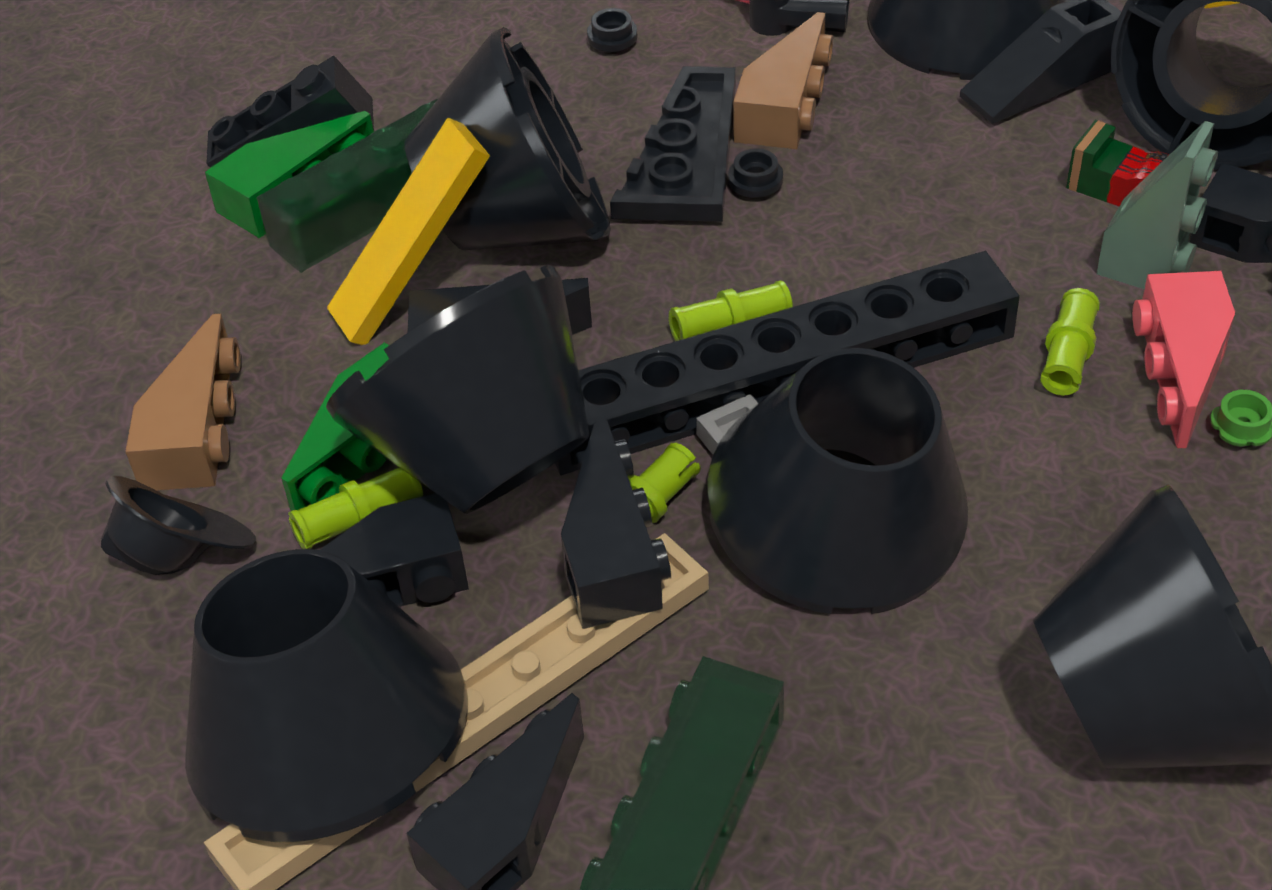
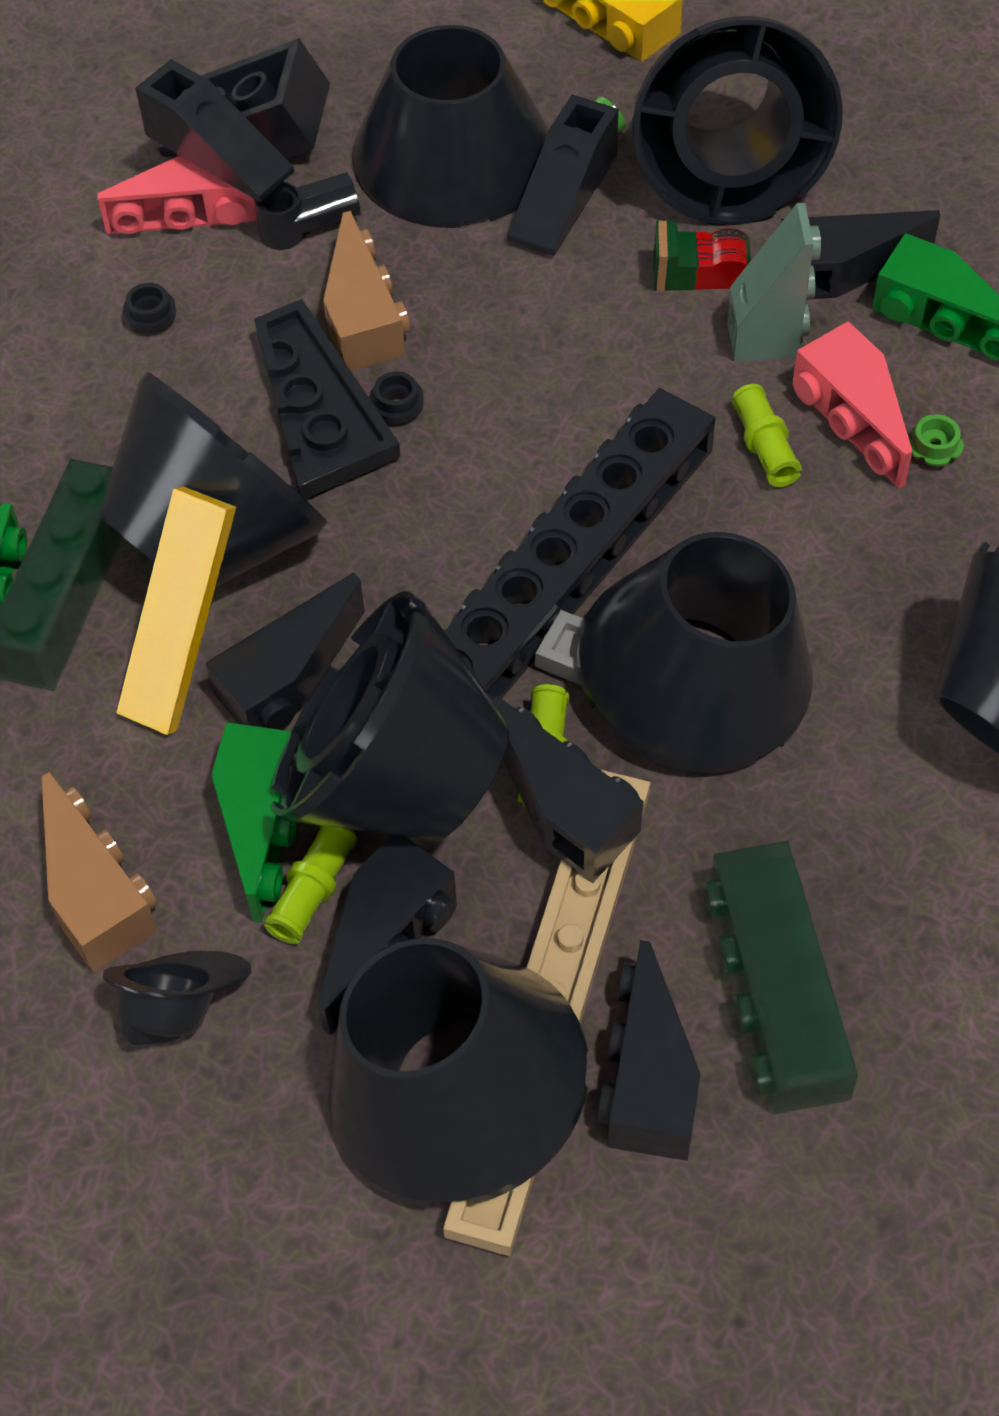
camera: 35 degrees left, 10 degrees up
(728, 309) = (481, 542): lime pin -> none

